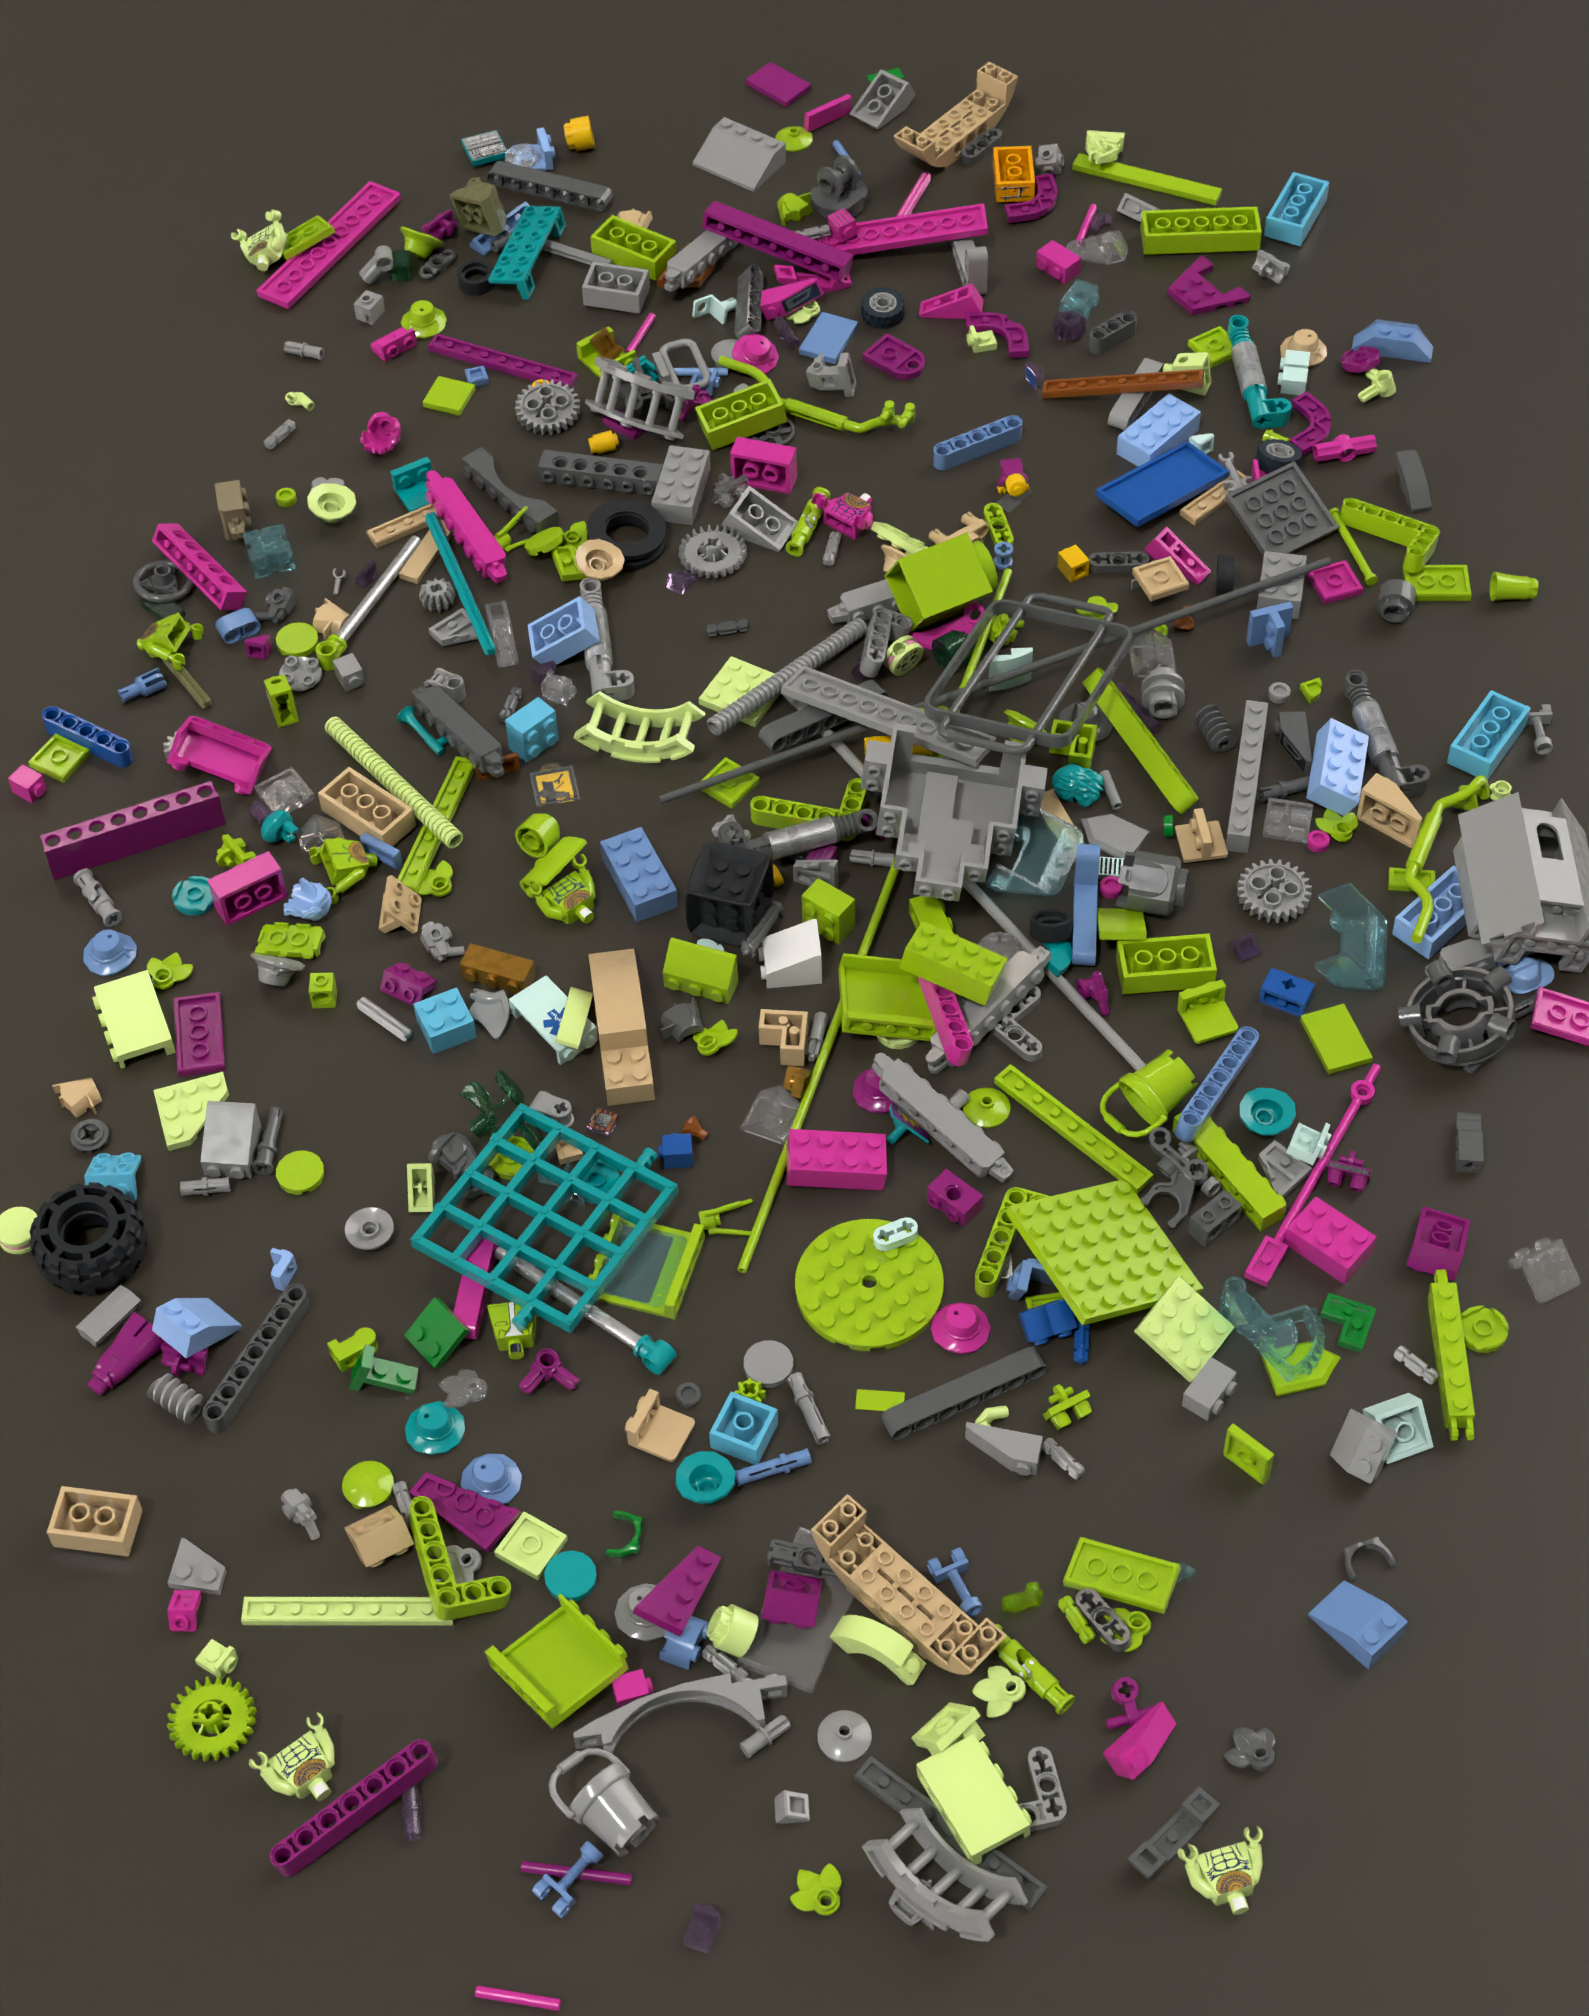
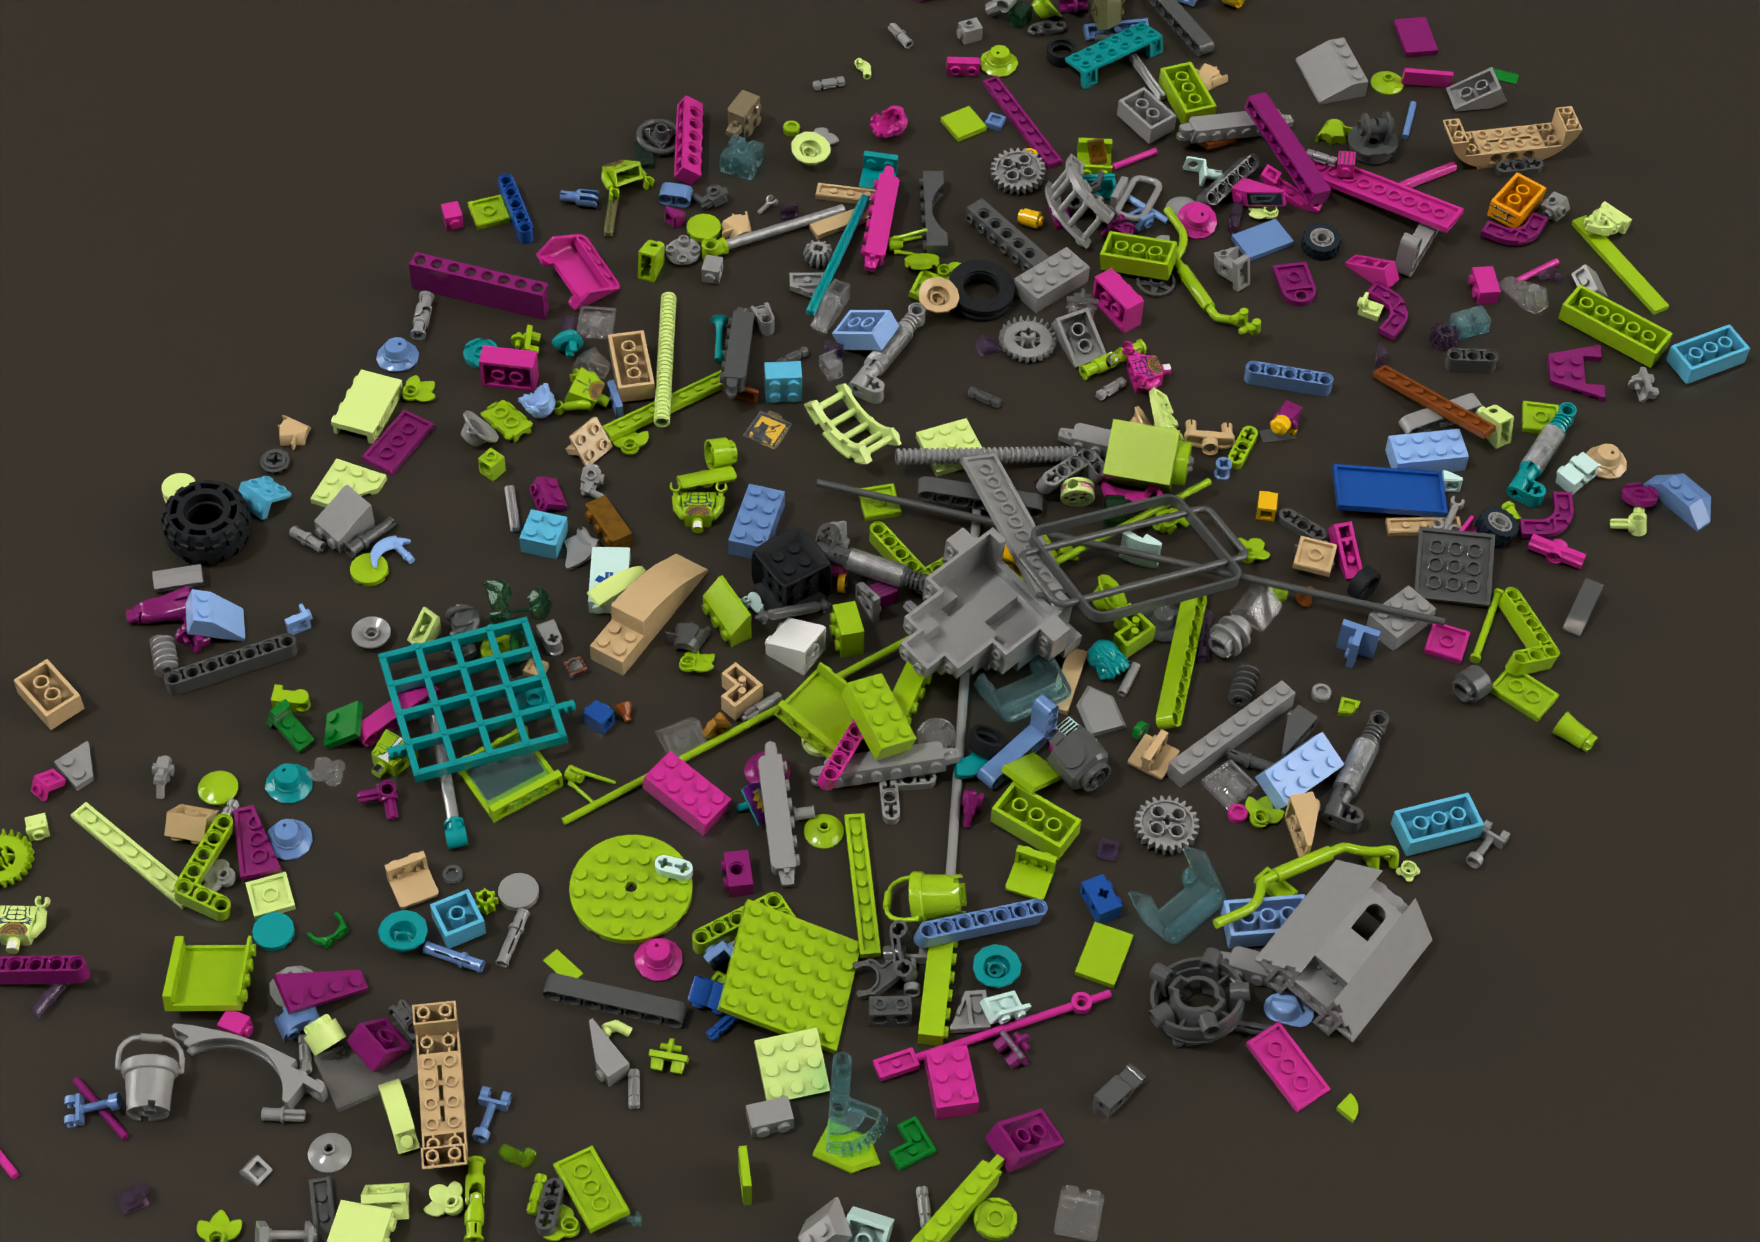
camera: 35 degrees right, 0 degrees up
(295, 1134) = (391, 543): none -> light blue piece

